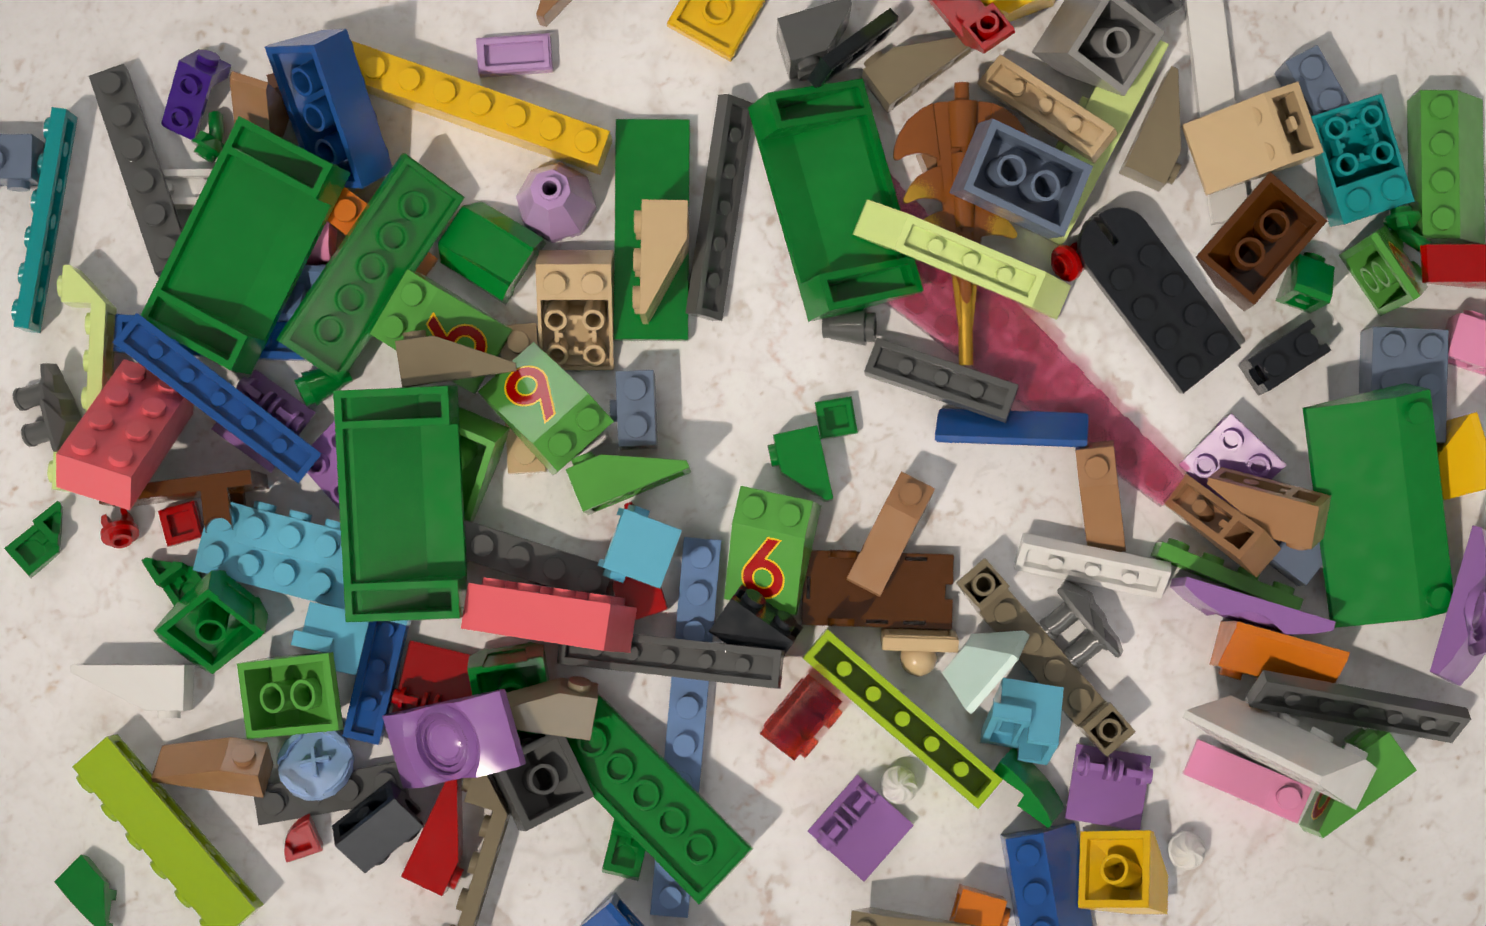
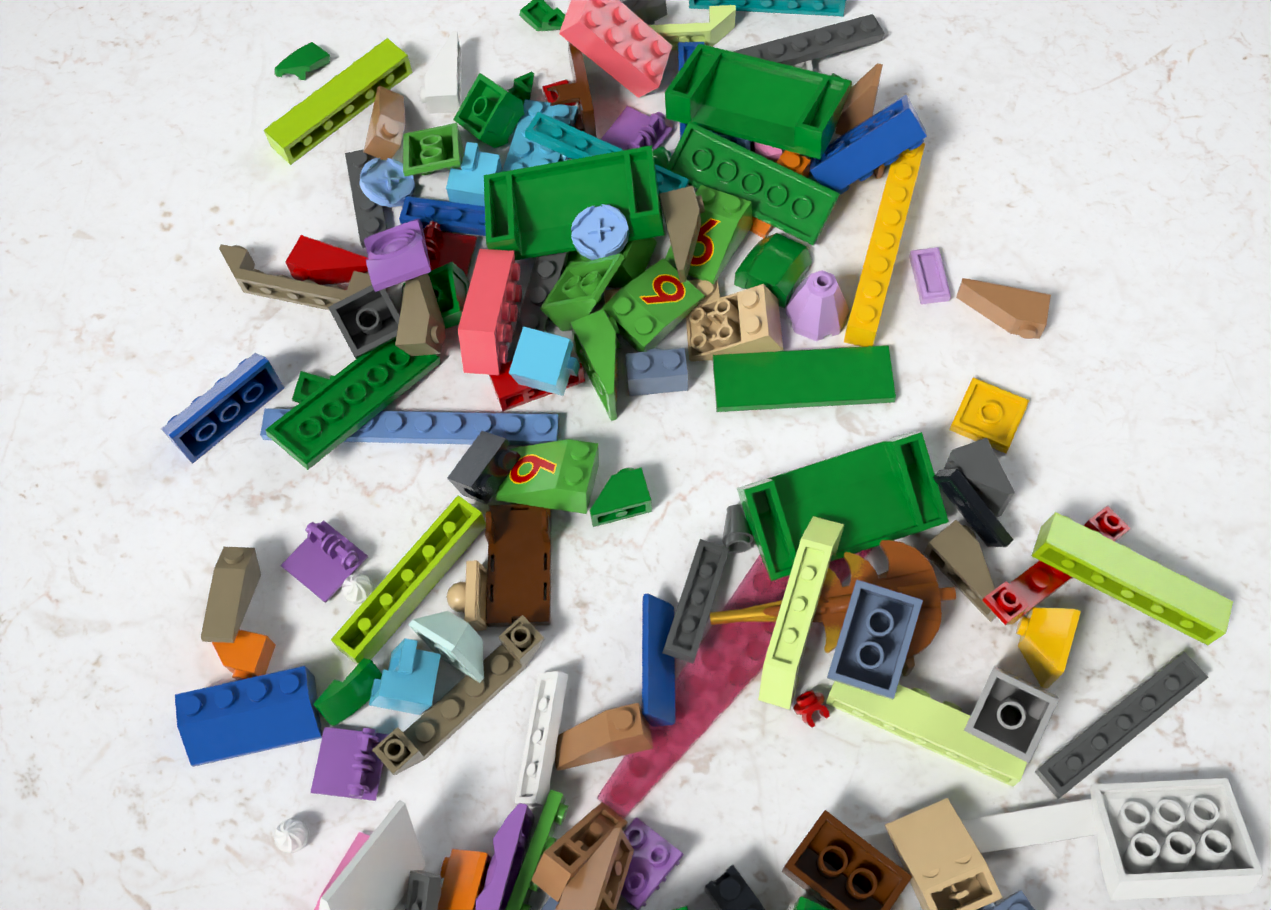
camera: 90 degrees right, 20 degrees down
(120, 532) = (552, 59): red plate -> none
(191, 91) = (890, 76): dark purple bracket -> none
(216, 398) = (650, 85): blue plate -> none
(302, 839) = (333, 181): red tile -> none
(313, 469) = (579, 144): none -> teal plate
(377, 826) = (338, 220): black brick -> none
(448, 468) = (600, 232): none -> light blue tile
(526, 496) = (579, 290): none -> bright green slope
(664, 245) = (779, 370): tan slope -> none
(685, 660) = (457, 422): dark grey plate -> none
(719, 208) = (822, 422): dark grey plate -> none
(801, 717) = (410, 500): clear red slope -> none
(836, 418) = (660, 524): green tile -> none
(890, 533) = (564, 565): medium nougat slope -> none
(1047, 108) = (943, 674): tan plate -> none
(1081, 606) = (501, 731): dark grey connector -> none
(1122, 873) = (271, 775): yellow slope -> none
(1154, 297) = (785, 783): black plate -> none
(1158, 140) = (926, 778): dark tan slope -> none

